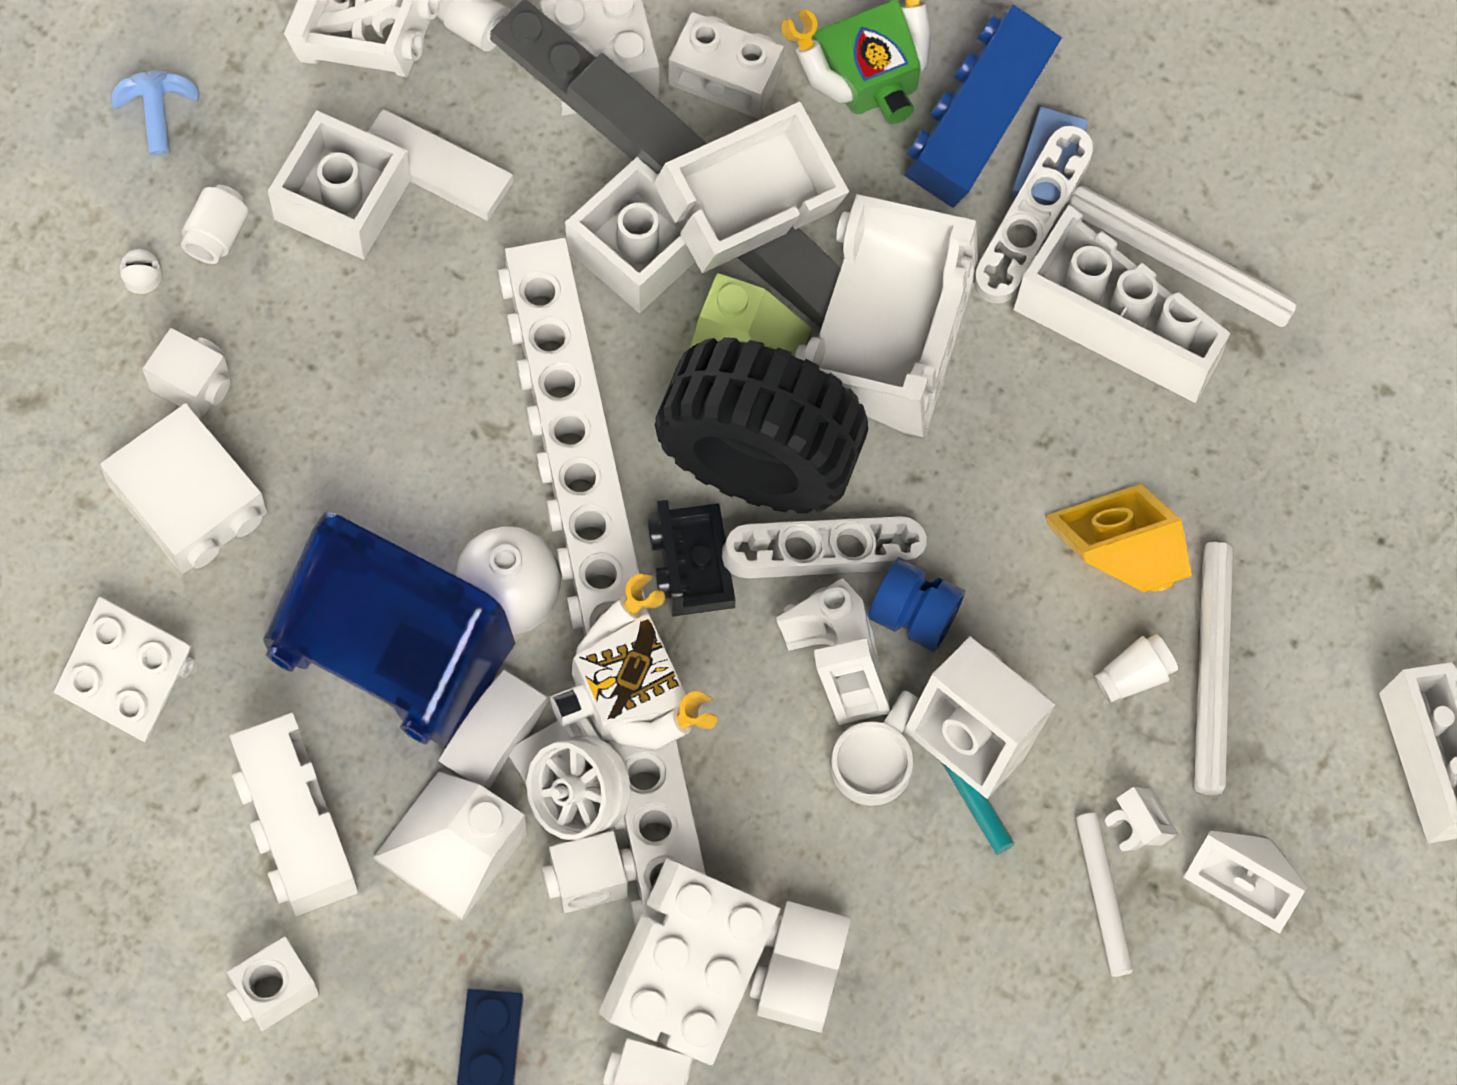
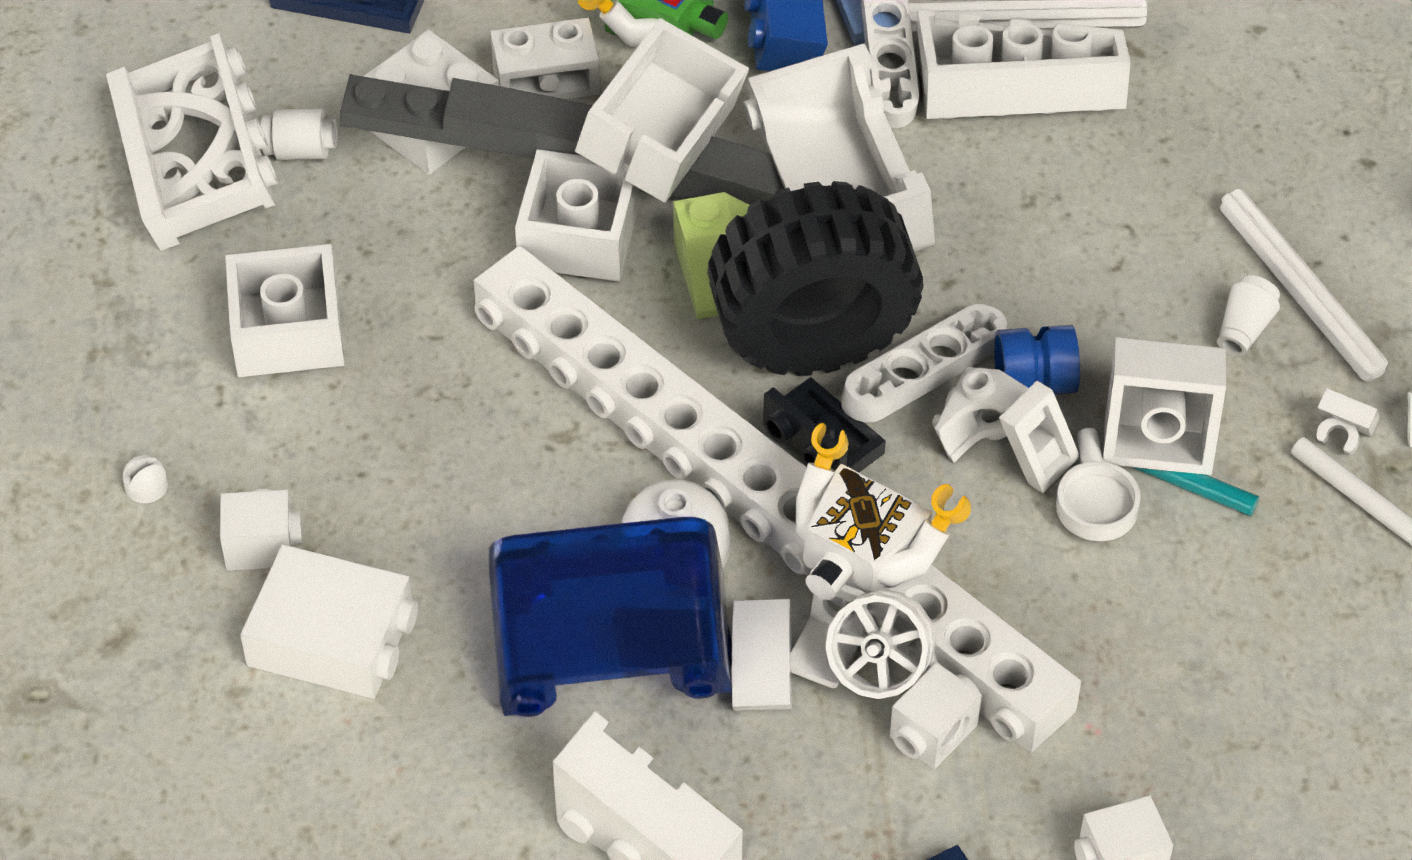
camera: 30 degrees left, 15 degrees down
(124, 669) = (387, 795): white hinge -> none
(152, 88) = (48, 326): light blue plant -> none
(214, 224) = (188, 403): white brick -> none
(446, 167) = (374, 259): white tile -> none
(453, 842) = (796, 760): white slope -> none
(691, 971) = (1095, 720): white piece -> none
(802, 966) = (1174, 682): white brick -> none
(1127, 537) = (1161, 223): yellow slope -> none

